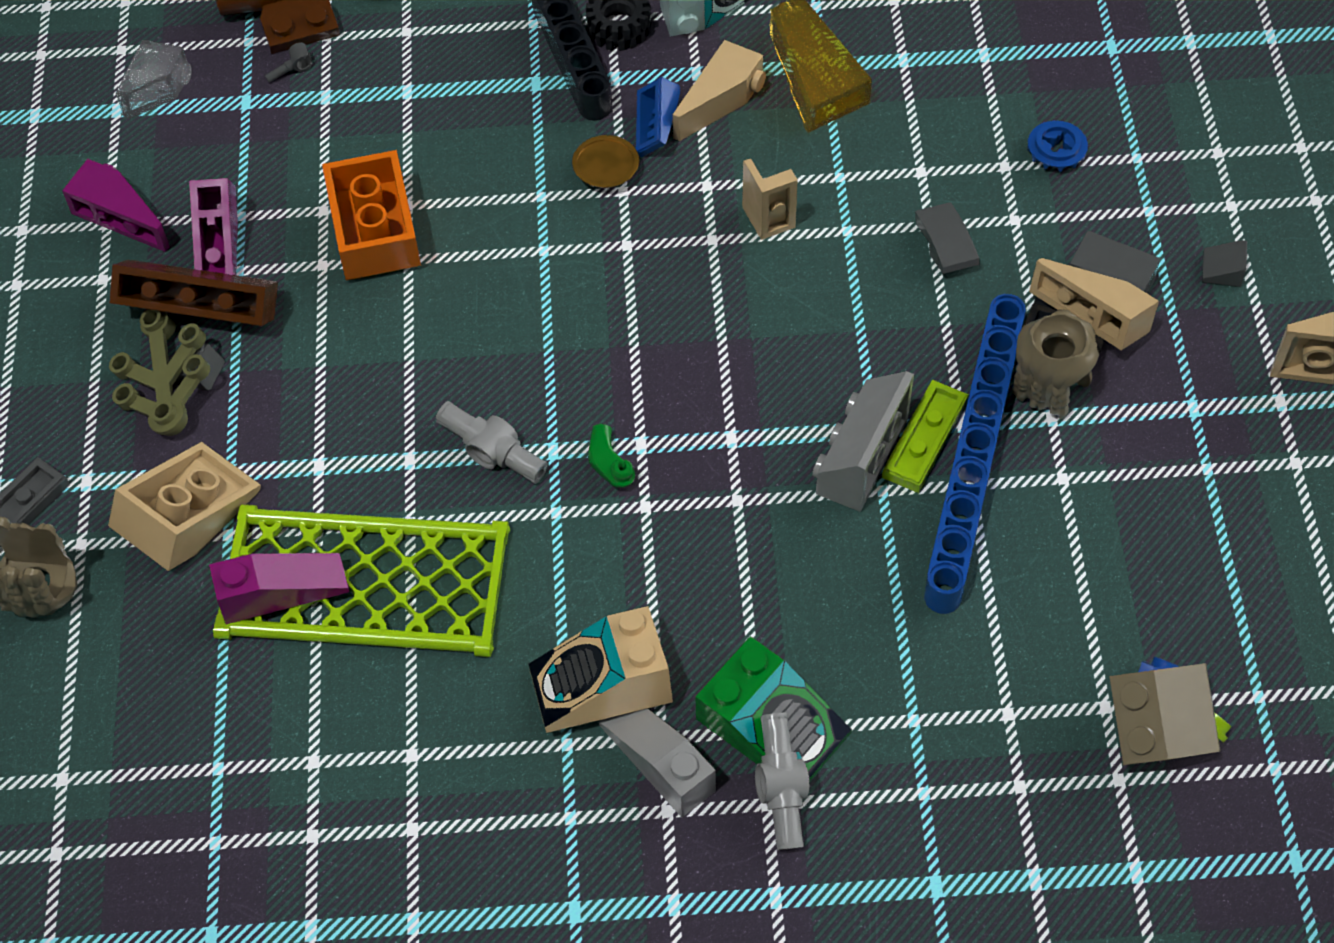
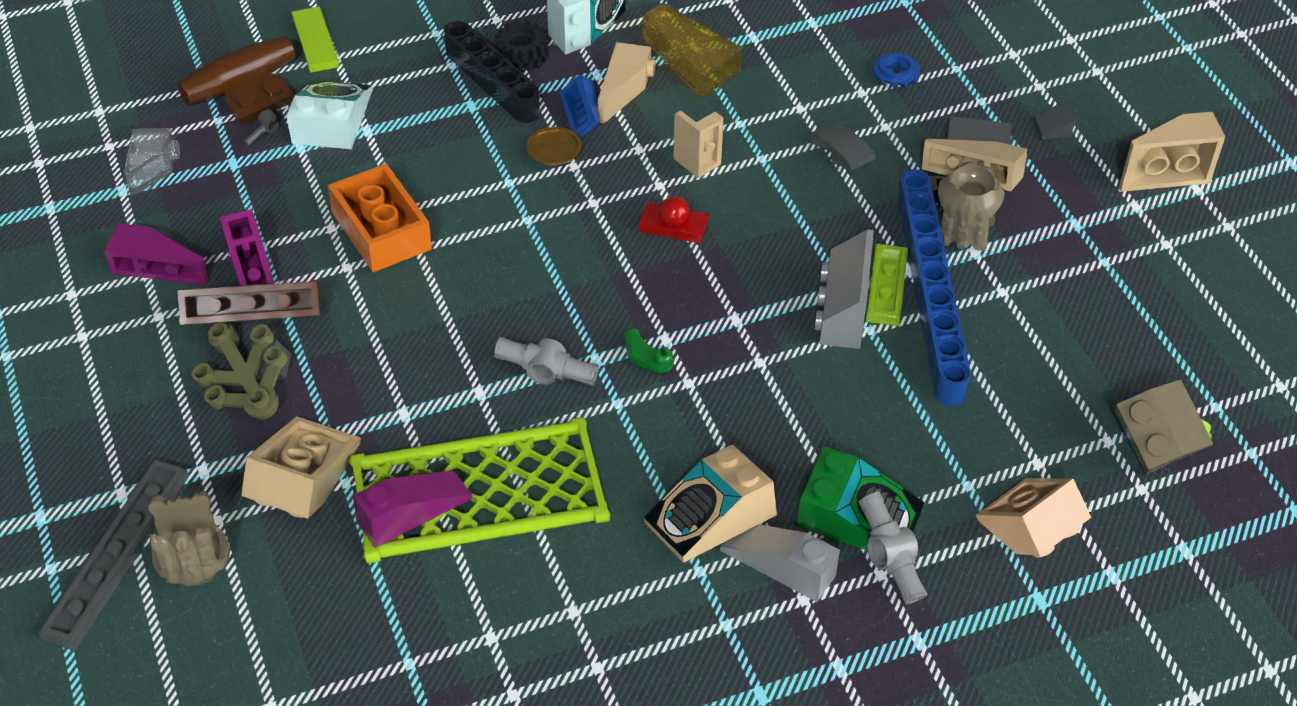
camera: 20 degrees left, 10 degrees down
(368, 59) = (328, 113): none -> light aqua slope
(707, 293) = (674, 220): none -> red tile
(969, 783) = (1036, 515): none -> light nougat slope

